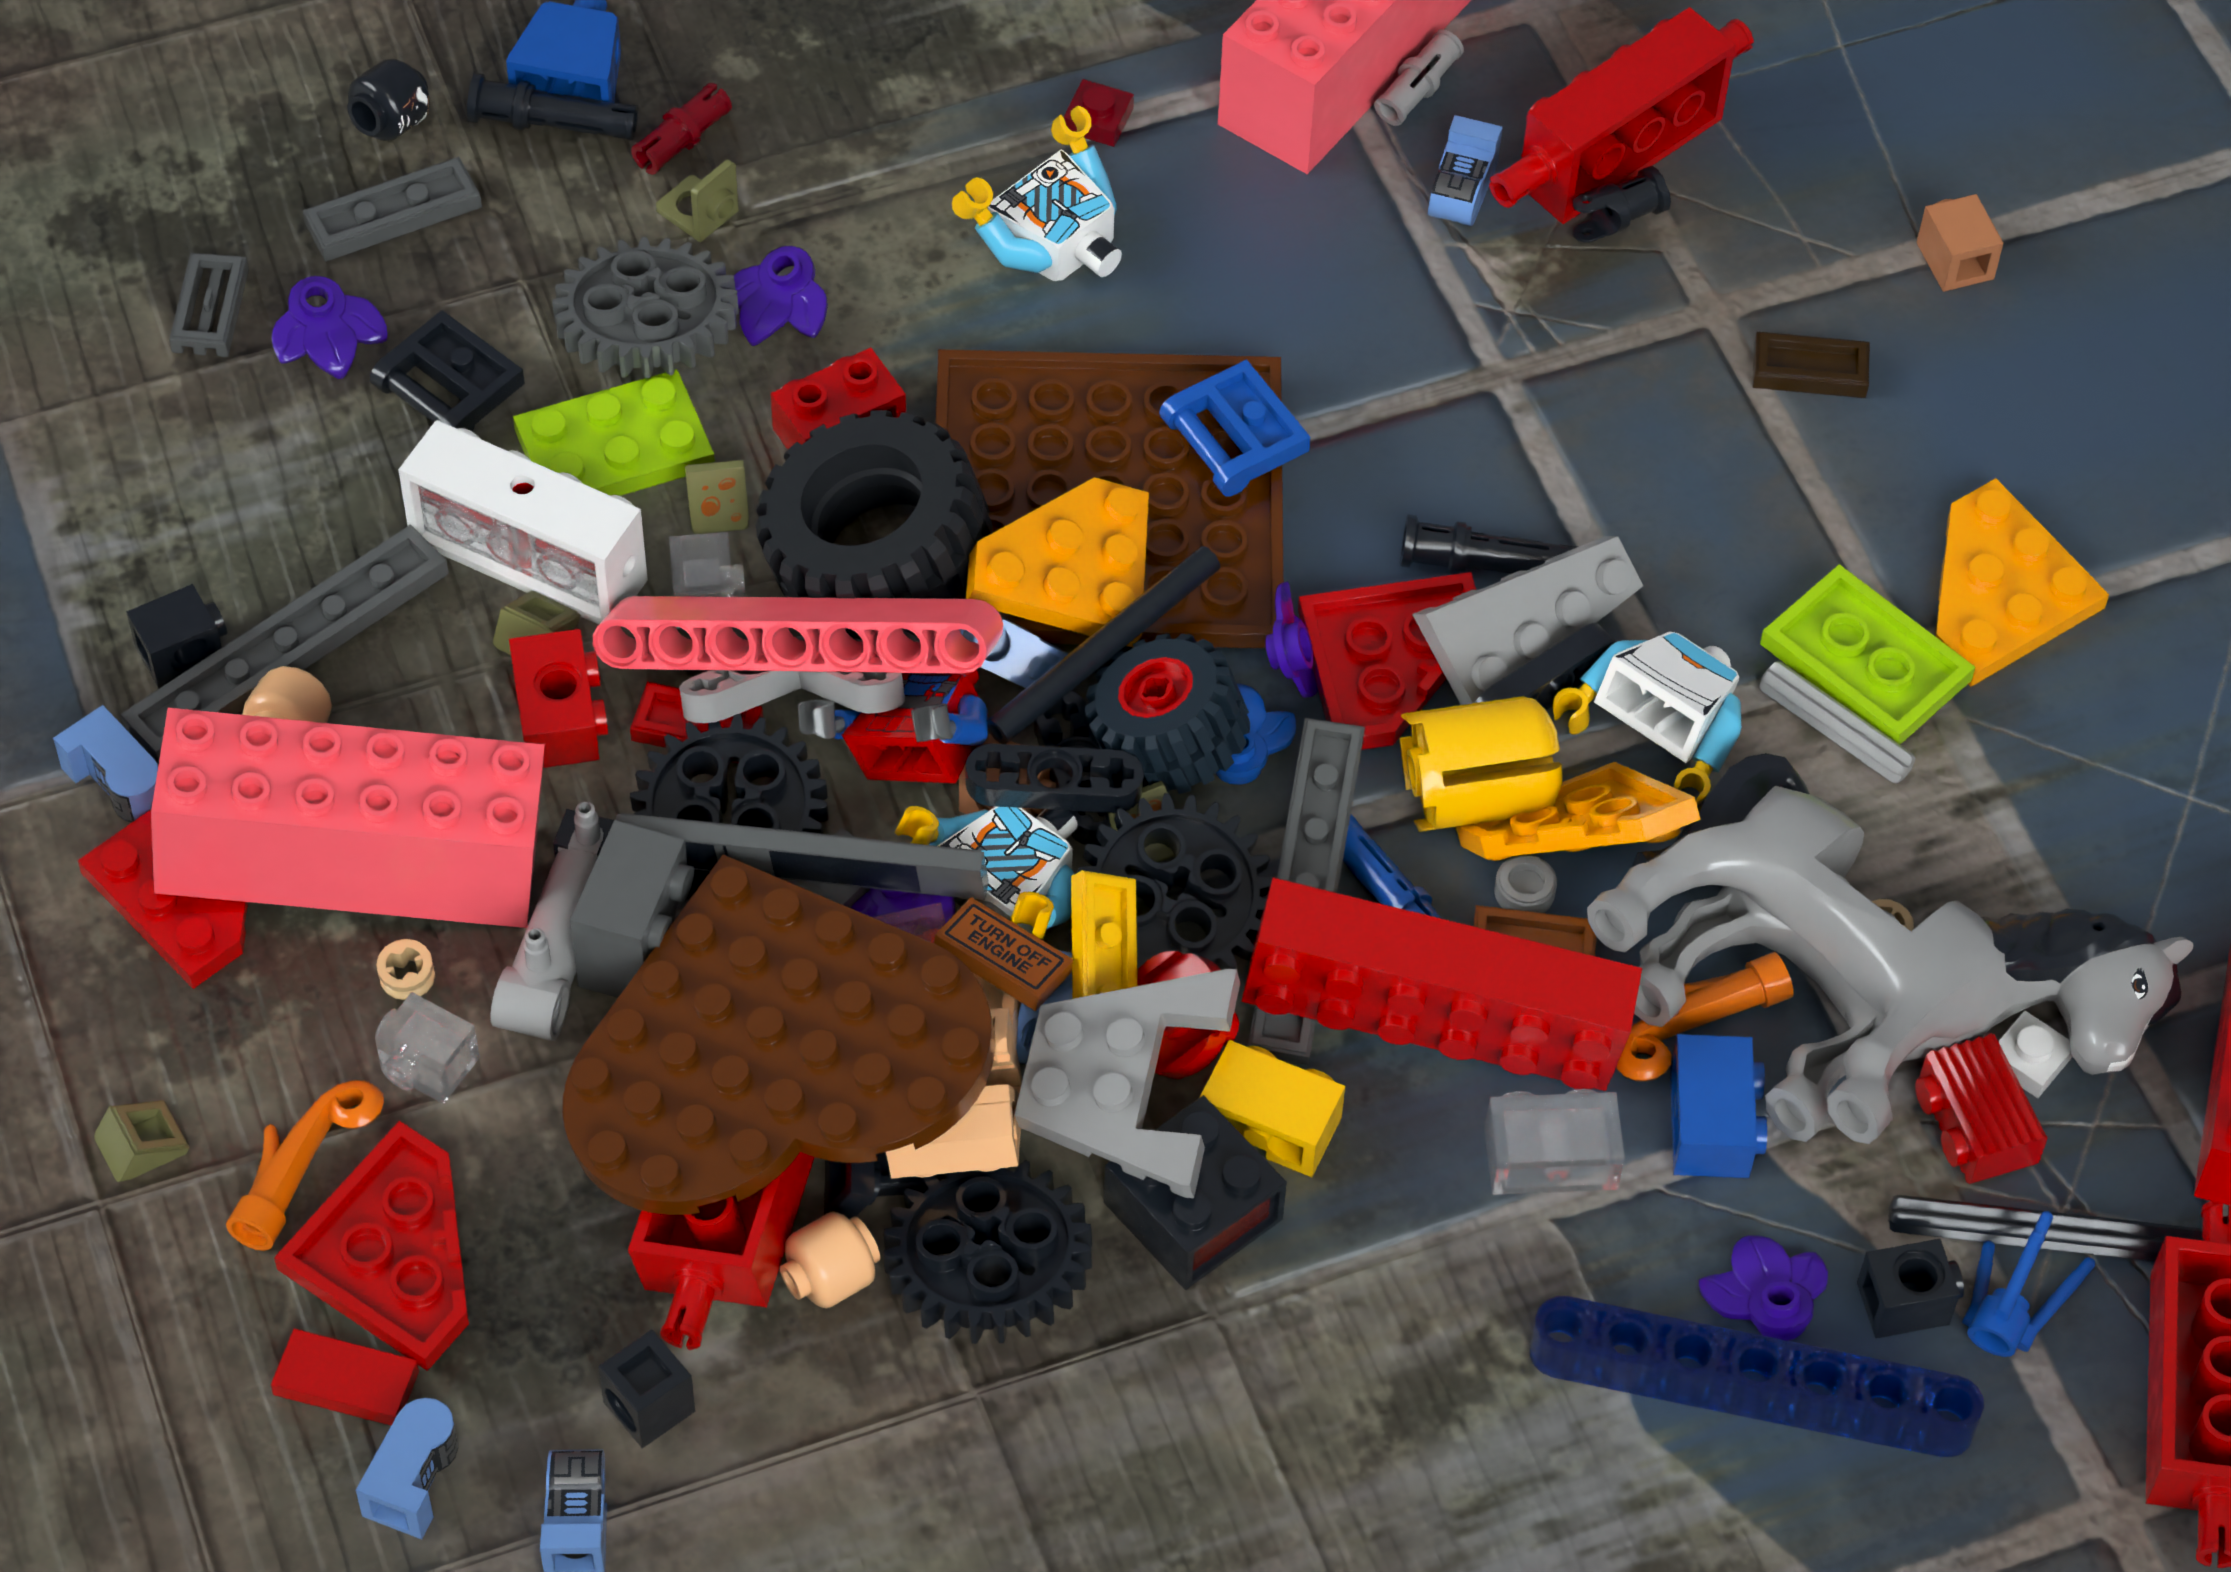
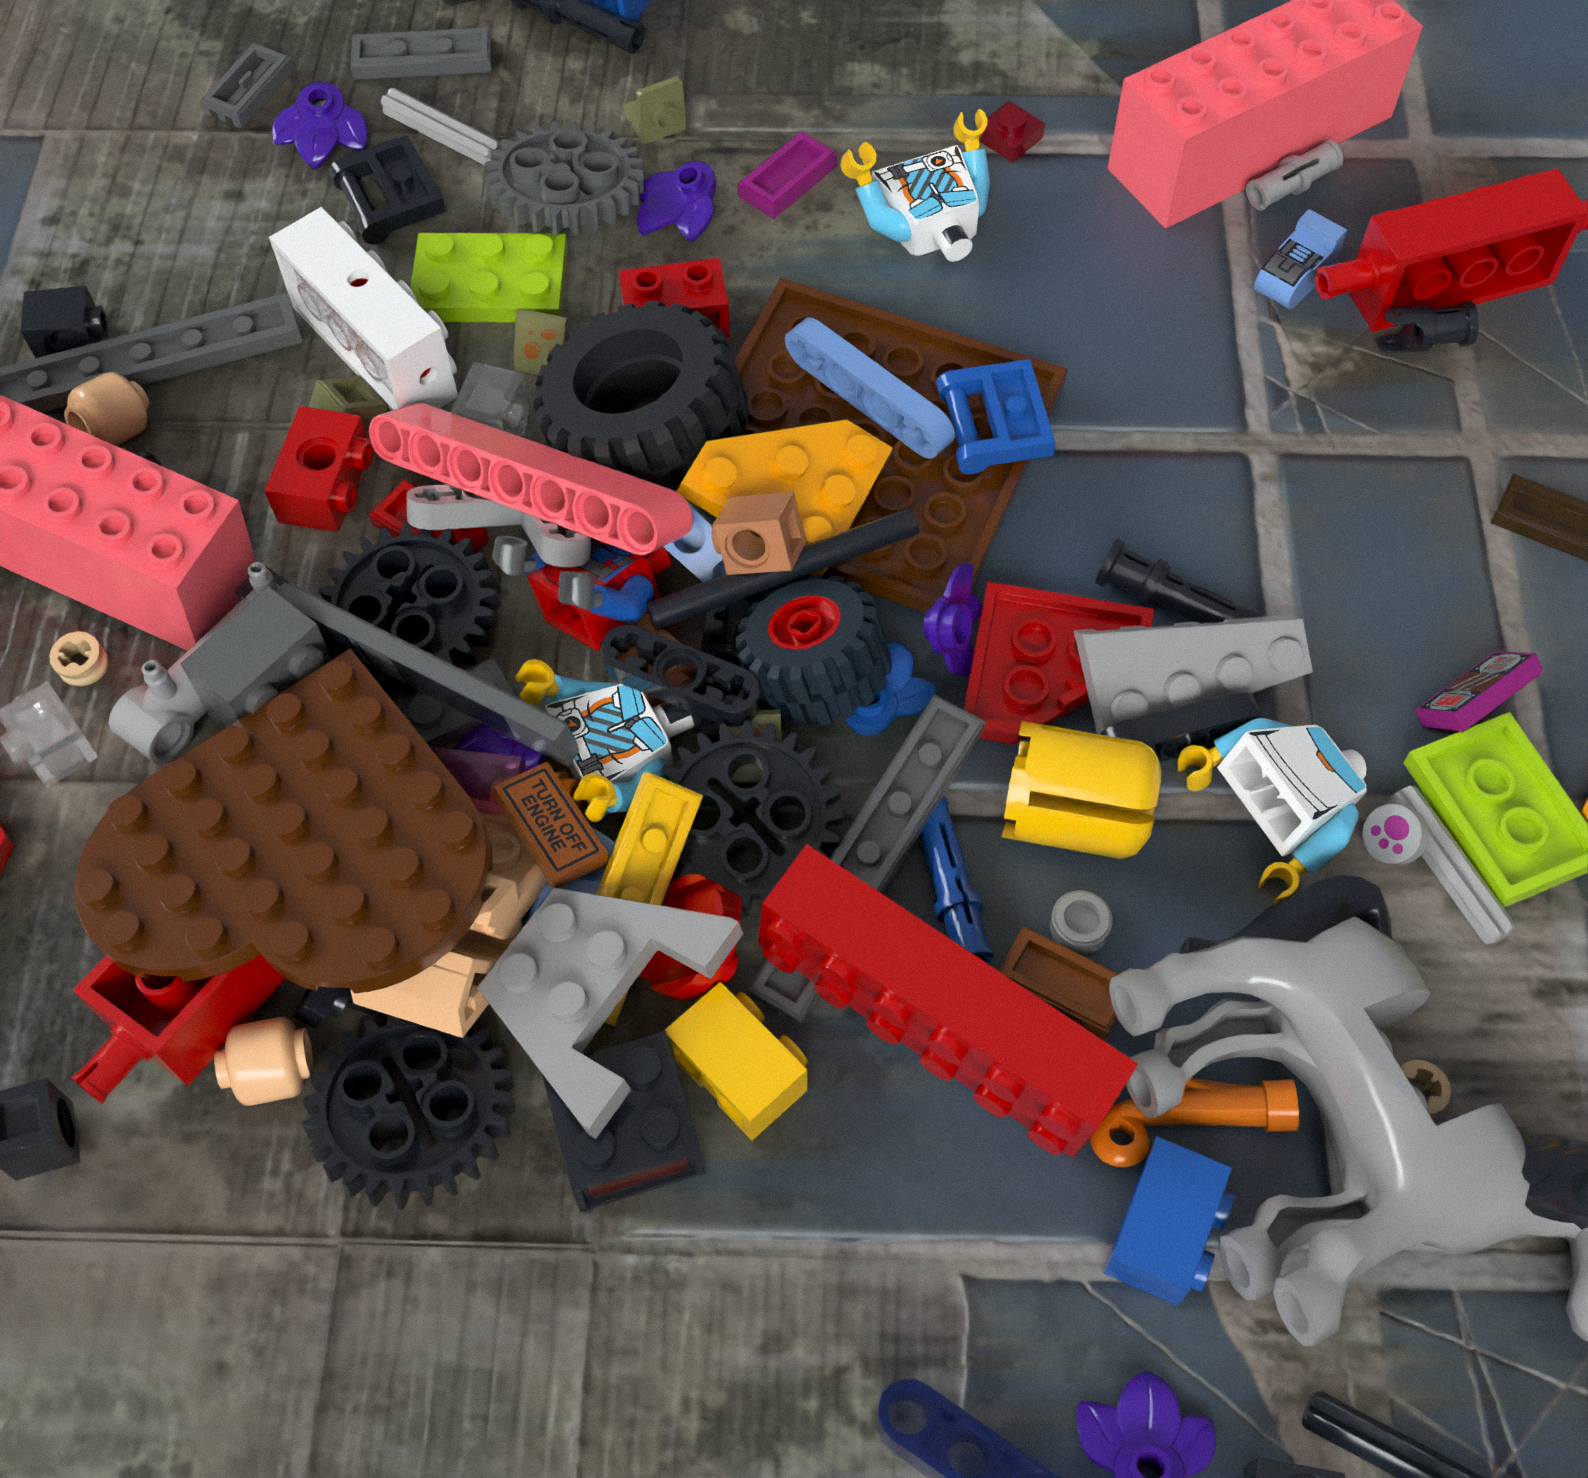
camera: 25 degrees right, 5 degrees up
(466, 289) = (439, 126): none -> light grey axle
(681, 128) = (670, 53): dark red pin -> none
(880, 231) = (787, 174): none -> magenta tile
(1074, 593) = (770, 516): none -> nougat brick
(1154, 454) = (870, 388): none -> medium blue beam
(1554, 1142) = (992, 1198): clear brick -> none
(1590, 811) = (1172, 878): light orange plate -> none
(1778, 710) = (1395, 834): none -> light grey tile
(1804, 553) = (1479, 690): none -> tile
(1980, 1109) = (1446, 1331): red brick -> none
(2035, 1052) = (1523, 1283): white plate -> none

